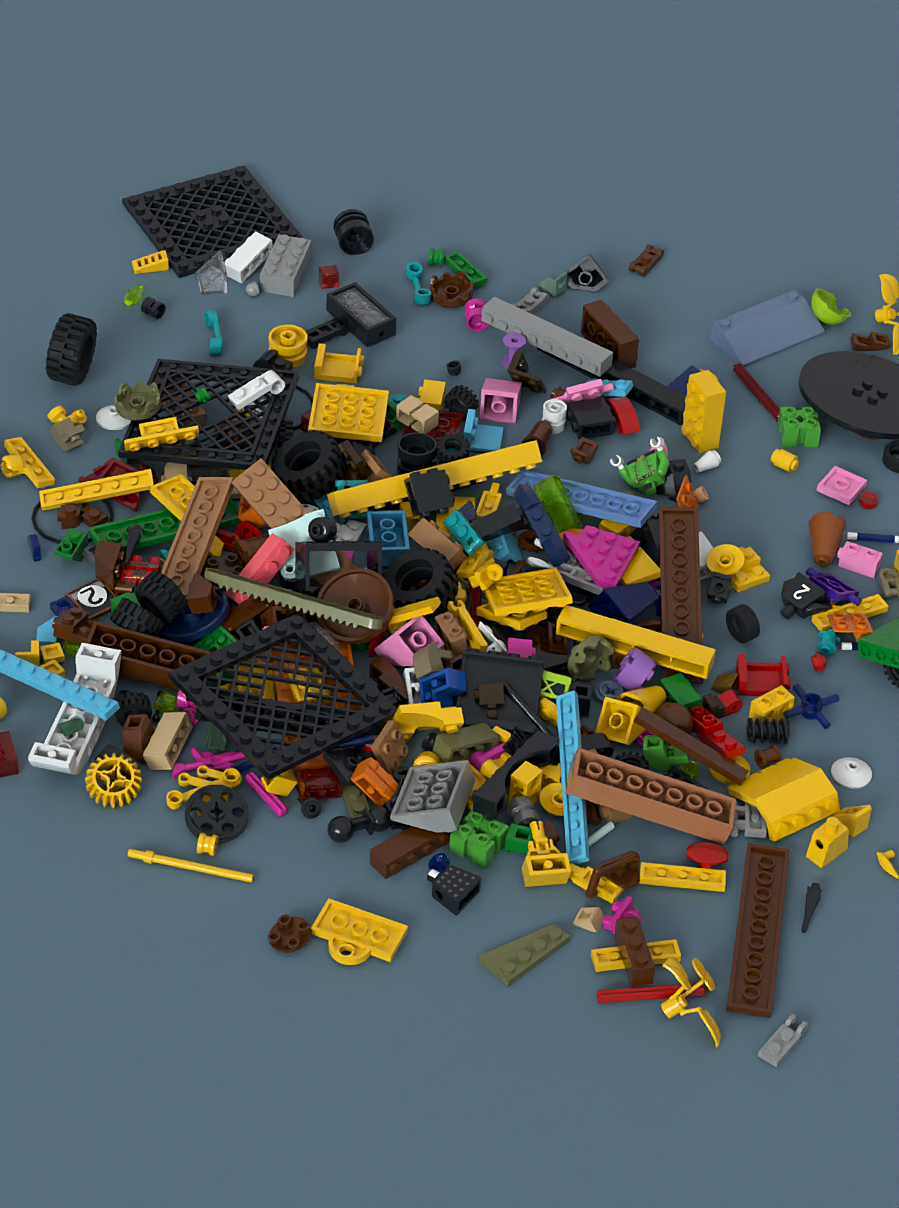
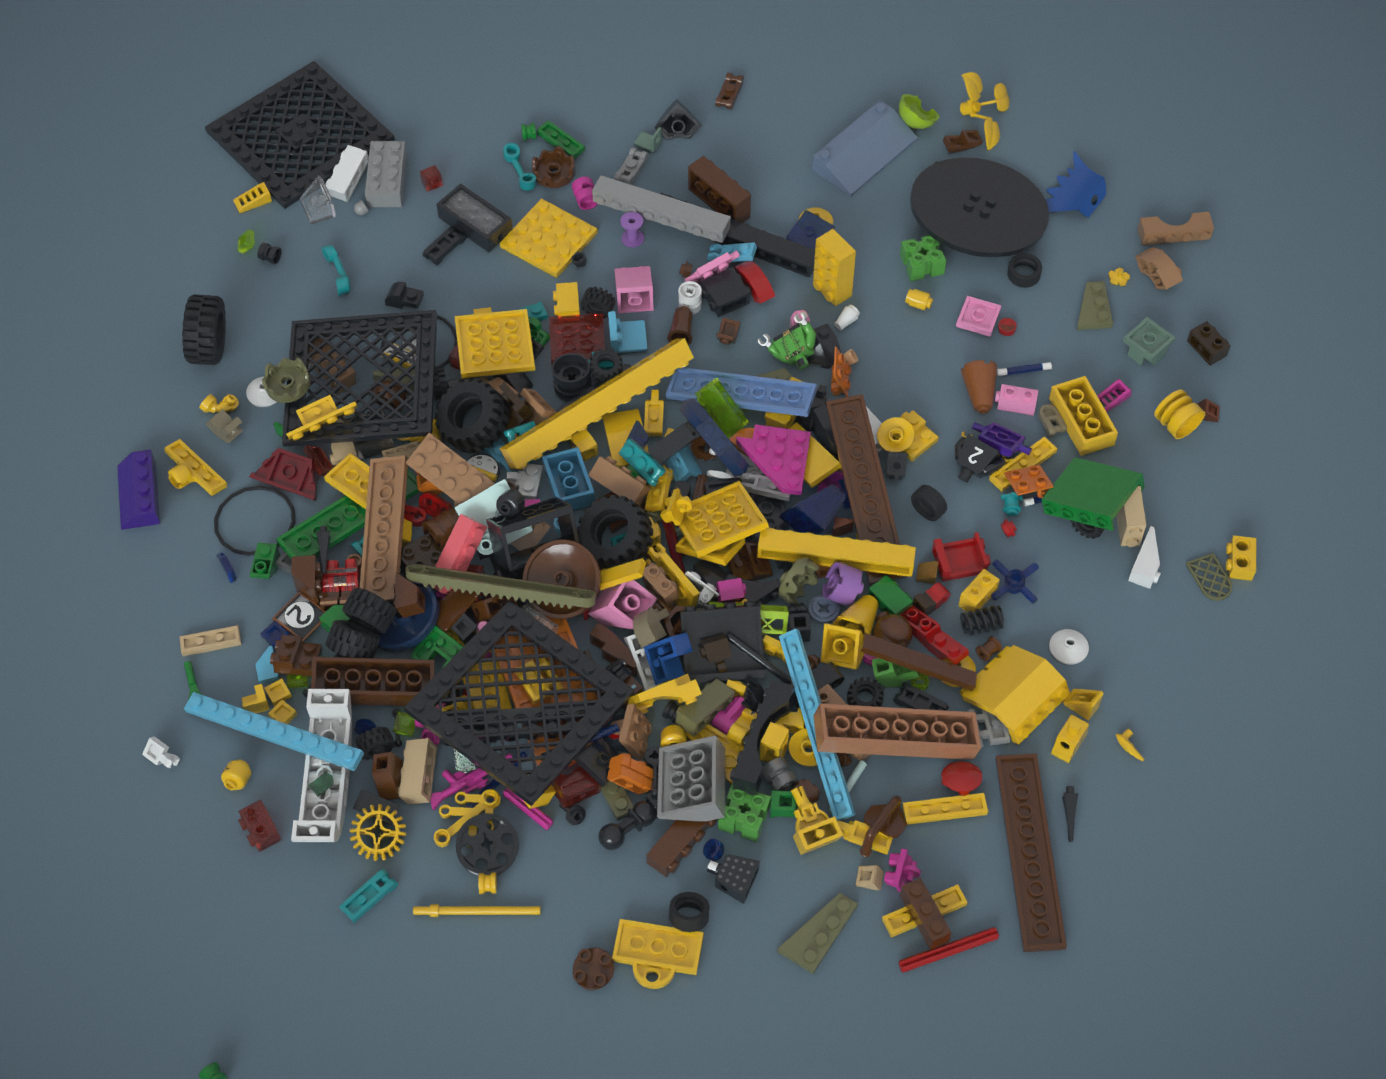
camera: 10 degrees left, 15 degrees up
(69, 516) = (252, 523): reddish brown plate -> none
(88, 831) = (368, 895): none -> teal plate
(93, 516) = (273, 517): reddish brown plate -> none
(96, 489) = (271, 488): yellow plate -> none
(202, 395) = (348, 359): green plate -> none
(255, 388) = (400, 341): white plate -> none
(290, 343) = (414, 268): yellow wheel -> none
(338, 366) = (467, 282): yellow panel -> none
(353, 232) = (442, 121): black wheel -> none
(398, 905) = (686, 923): none -> black tyre
(412, 410) = (556, 324): tan piece -> none
(429, 345) = (548, 238): none -> yellow plate
(429, 492) = (598, 425): black brick -> none
(518, 371) = (643, 250): dark brown bracket -> none
(677, 1003) = (984, 951): yellow plant -> none
(757, 390) = (872, 222): dark red axle -> none
(782, 1041) = (1083, 975): light grey hinge -> none

